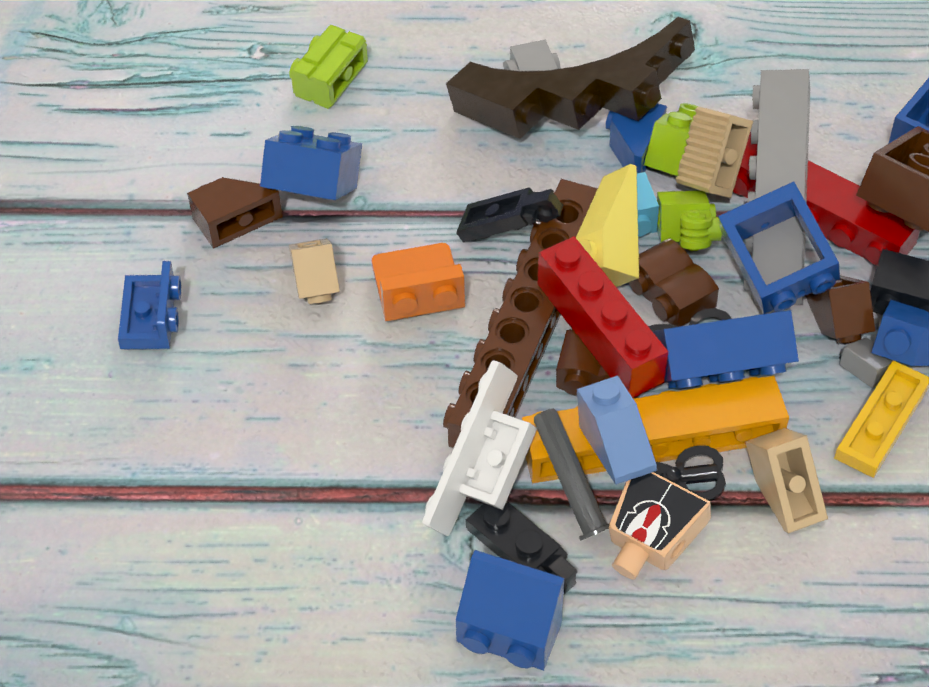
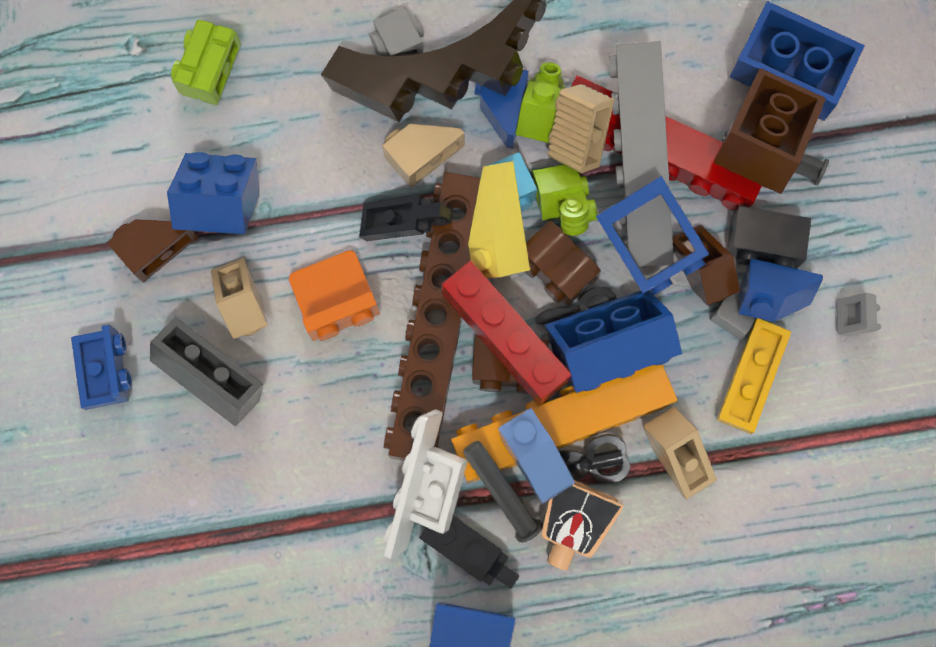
camera: 10 degrees left, 25 degrees up
(262, 322) = (205, 371): none -> dark grey brick
(541, 162) = (421, 149): none -> tan slope

